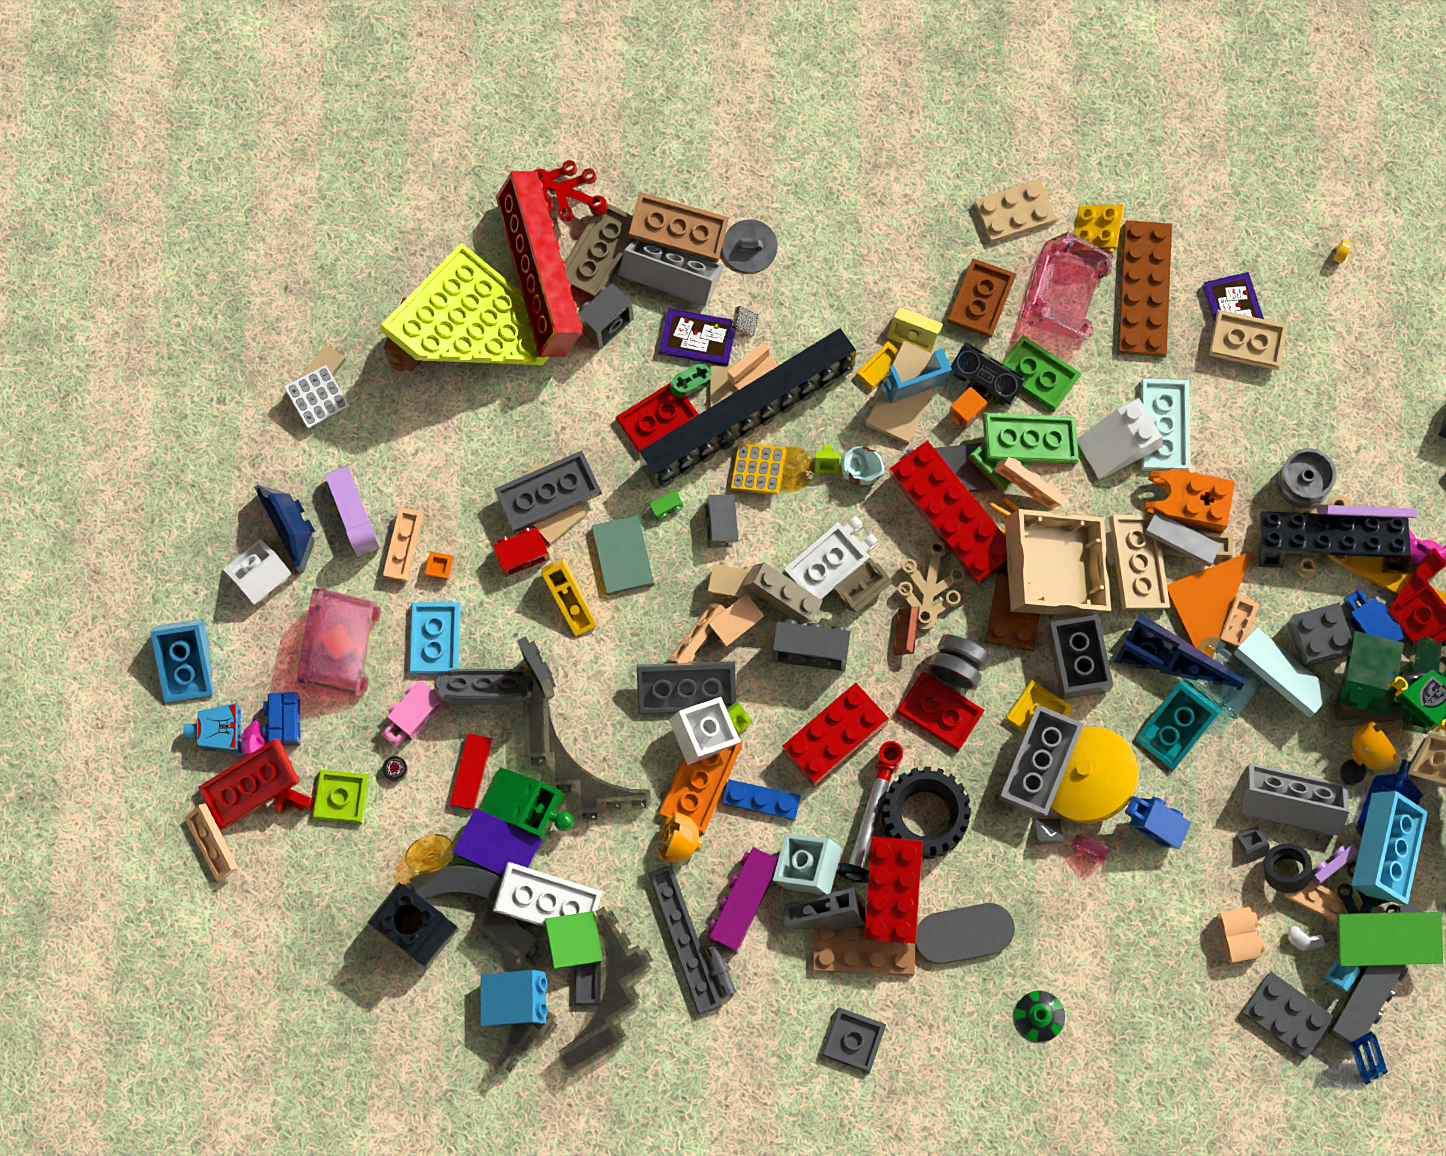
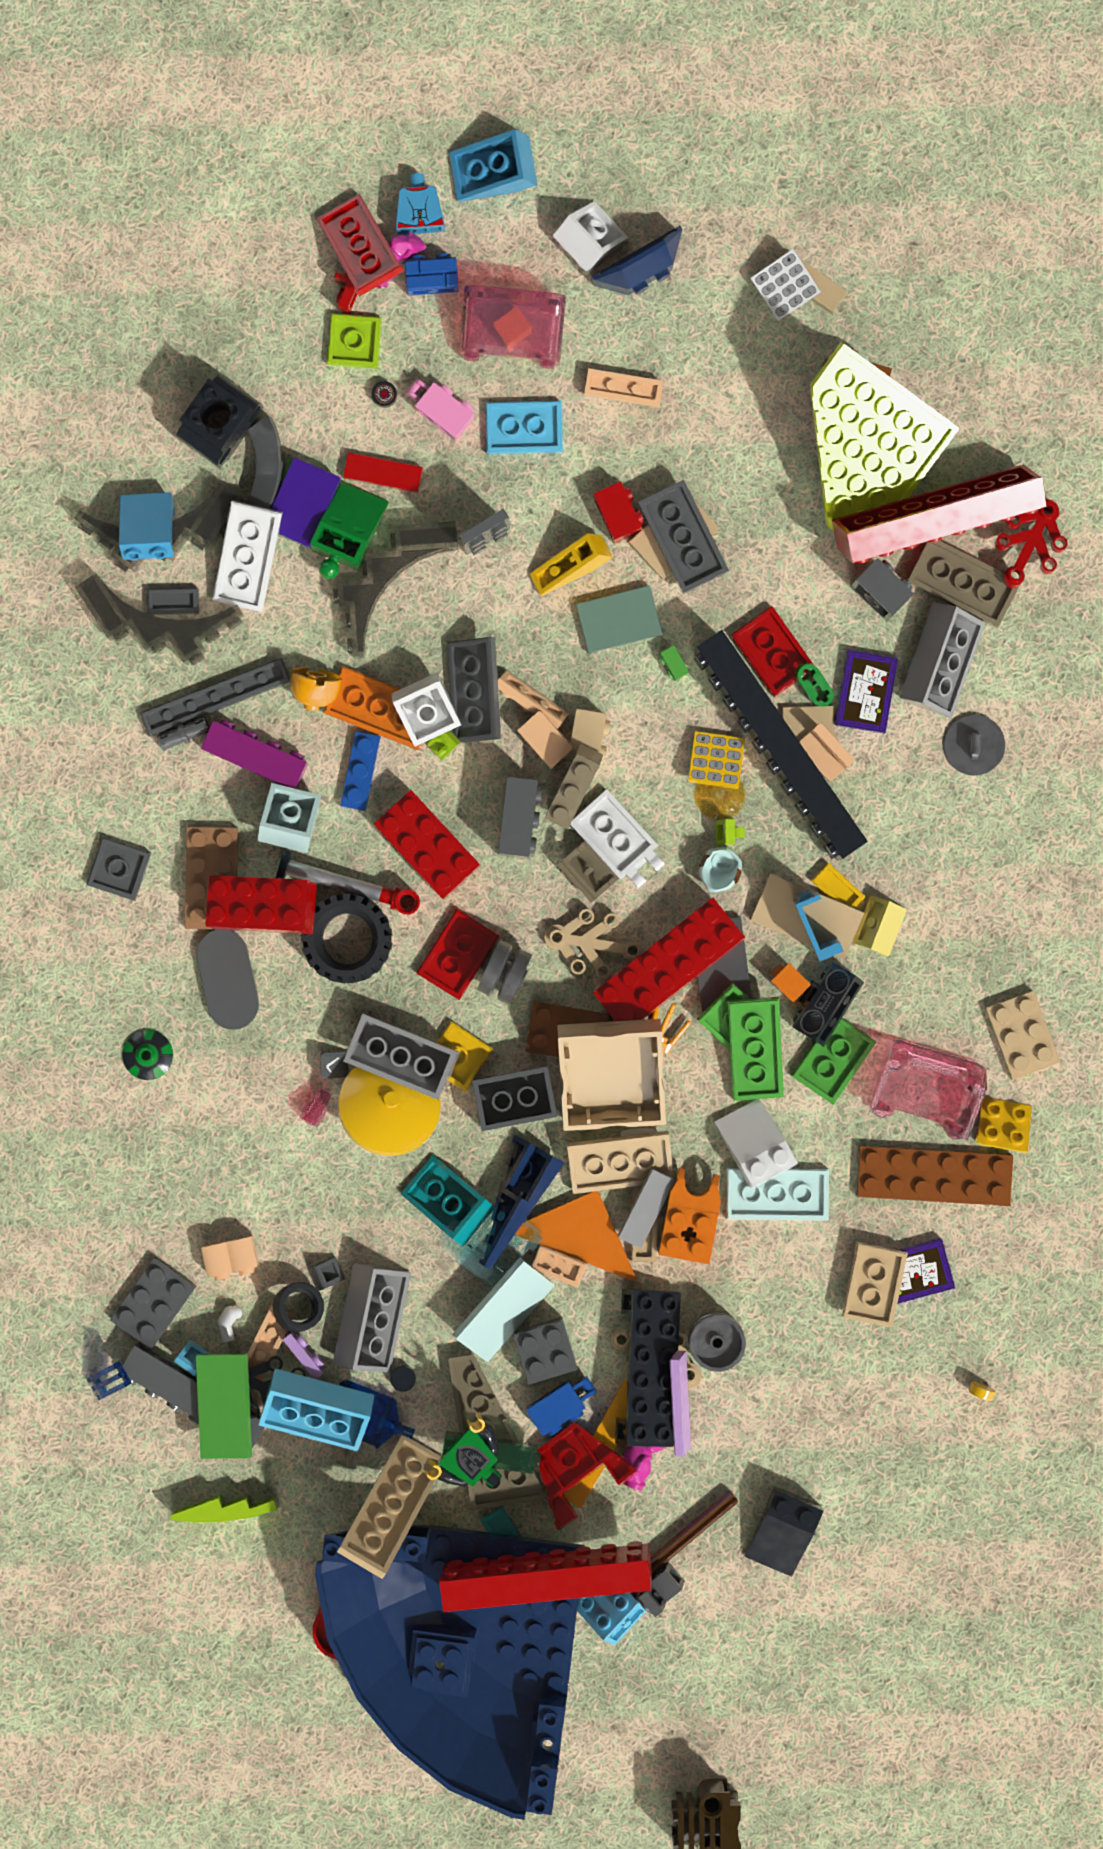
camera: 90 degrees right, 15 degrees up
(211, 842) = (302, 212): light nougat plate -> none
(352, 511) = (655, 333): lavender beam -> none
(429, 853) = (302, 431): clear yellow dish -> none
(439, 566) = (601, 427): orange plate -> none
(483, 687) = (468, 478): dark grey tile -> none
(573, 940) = (207, 583): bright green tile -> none
(678, 227) = (991, 665): medium nougat plate -> none
(721, 520) = (657, 721): dark grey hinge -> none
(744, 321) = (884, 741): clear smoke tile -> none
(828, 911) = (241, 837): dark grey slope -> none
(906, 631) = (541, 917): copper tile -> none
(982, 298) = (917, 997): dark orange plate -> none
(1030, 482) = (704, 1047): light nougat plate -> none
(1158, 821) = (341, 1174): brick -> none
(1368, 671) = (499, 1397): dark green slope -> none
(1372, 748) = (423, 1398): light orange cylinder -> none

